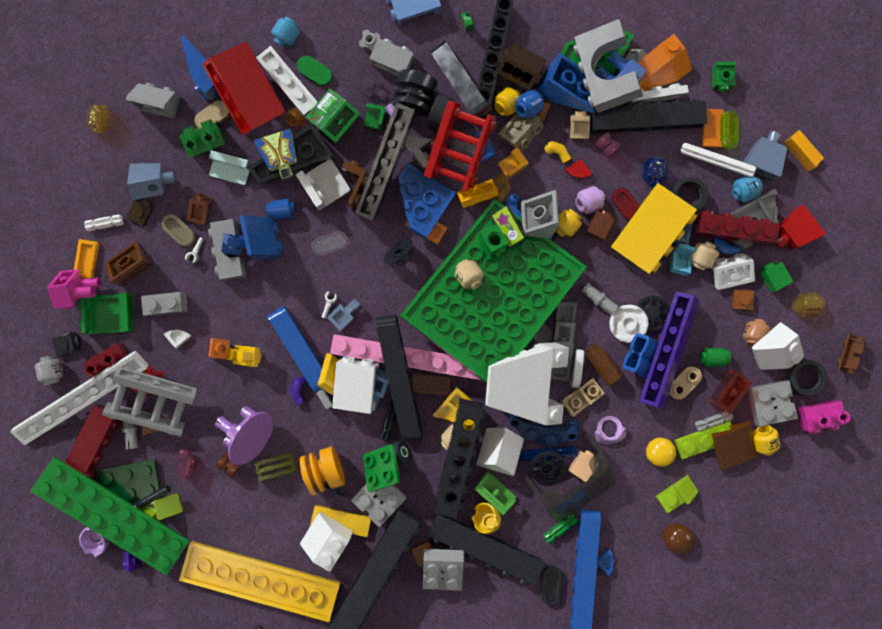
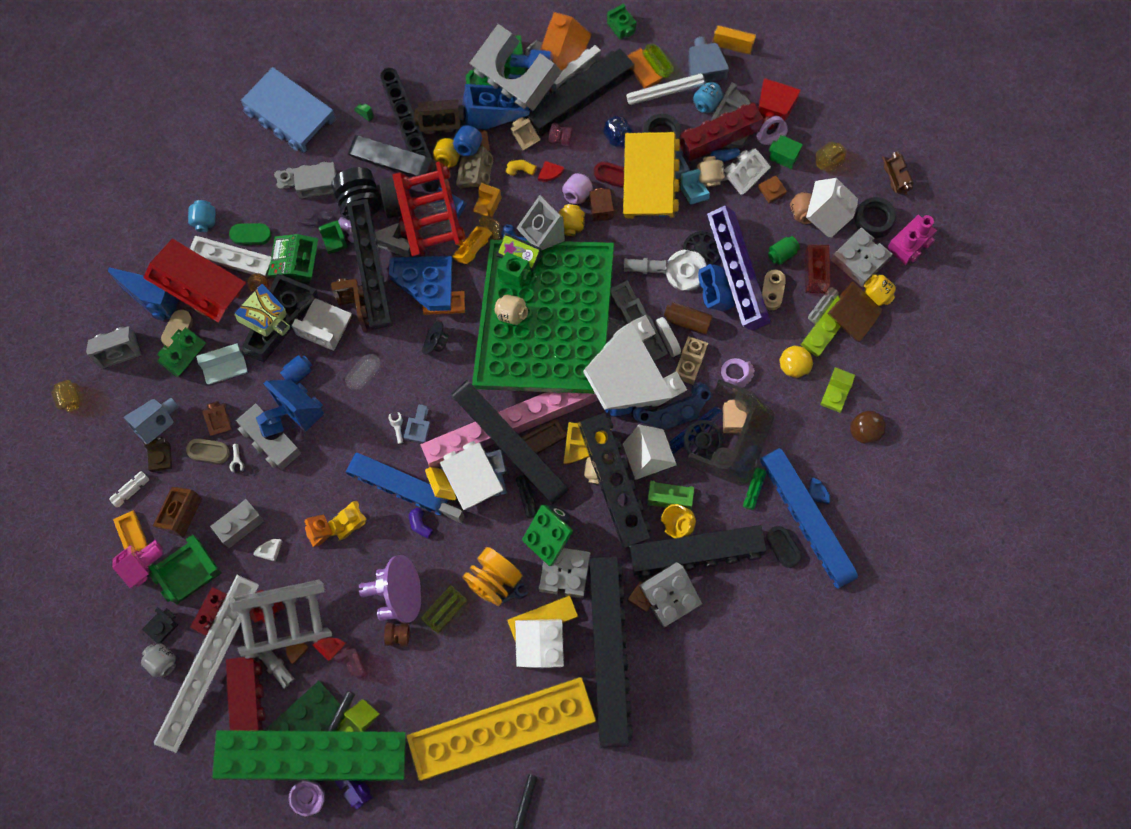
camera: 30 degrees left, 15 degrees down
(174, 443) = (329, 647): none -> red tile
(769, 254) = (766, 139): none -> lavender piece

